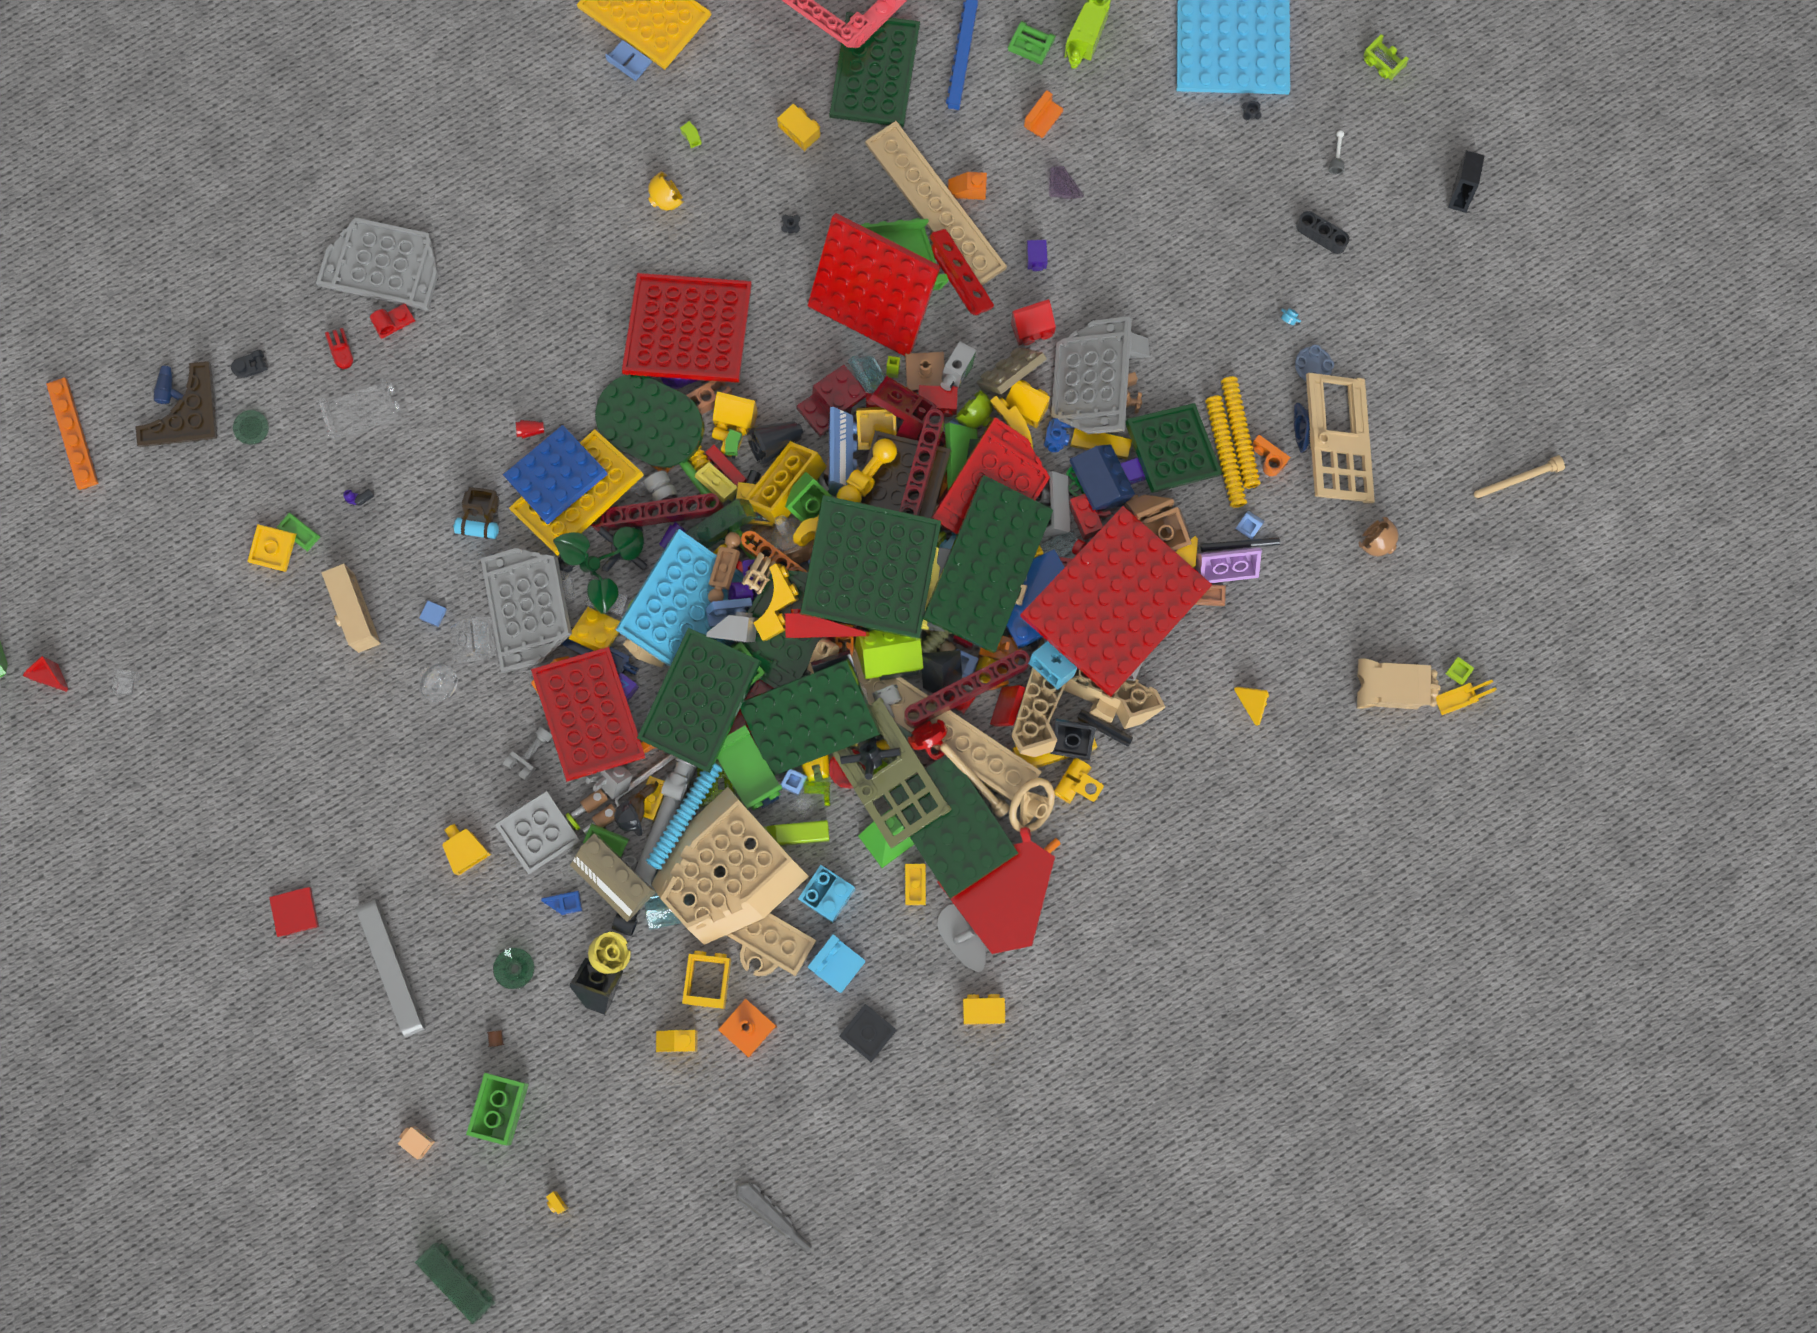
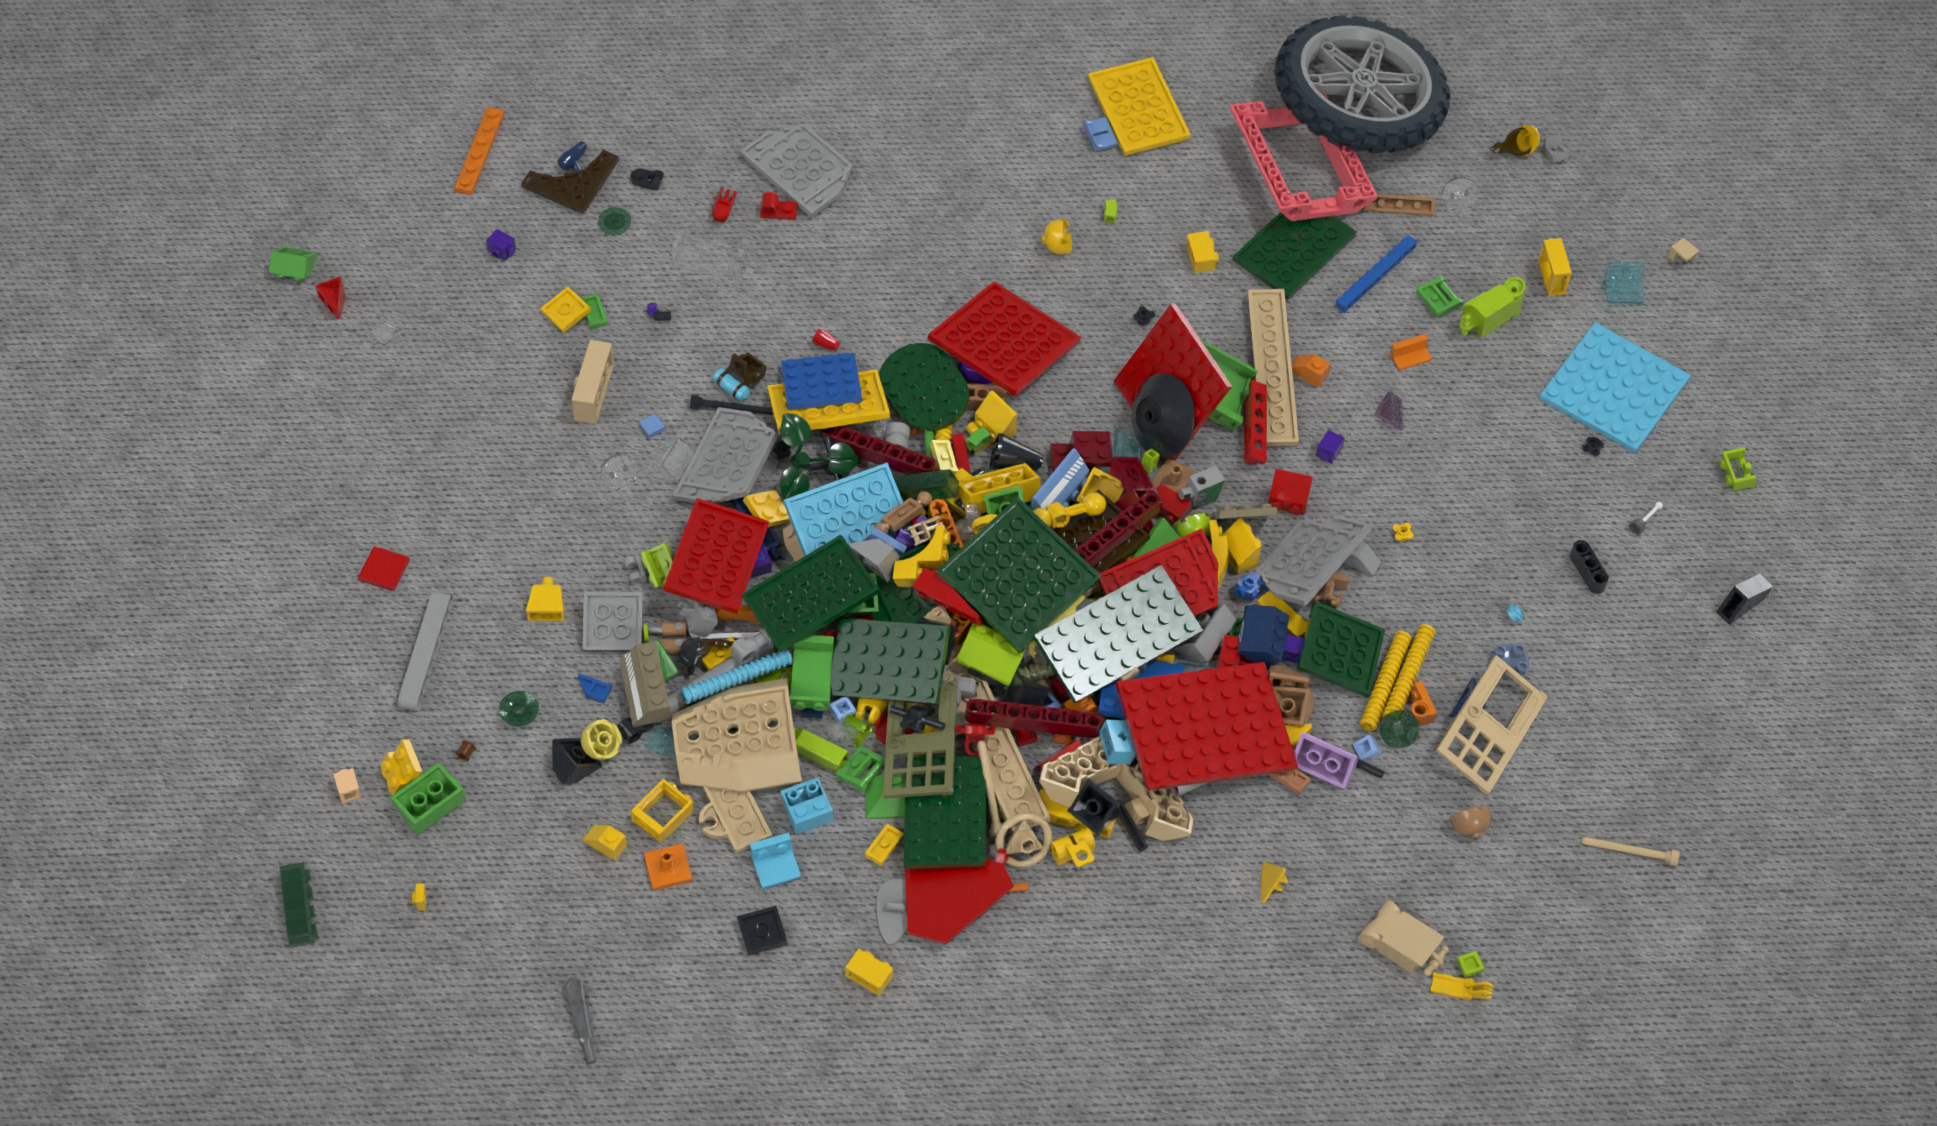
camera: 30 degrees right, 20 degrees down
(164, 520) = (501, 245): none -> dark purple brick
(453, 1098) = (400, 767): none -> yellow plate
(457, 564) = (698, 402): none -> black piece
(539, 750) = (658, 562): none -> lime bracket
(842, 827) = (857, 765): none -> bright green plate
(881, 320) = (1163, 415): none -> black dish
(1148, 303) = (1403, 536): none -> yellow plate
(1267, 491) = (1399, 729): none -> clear green dish

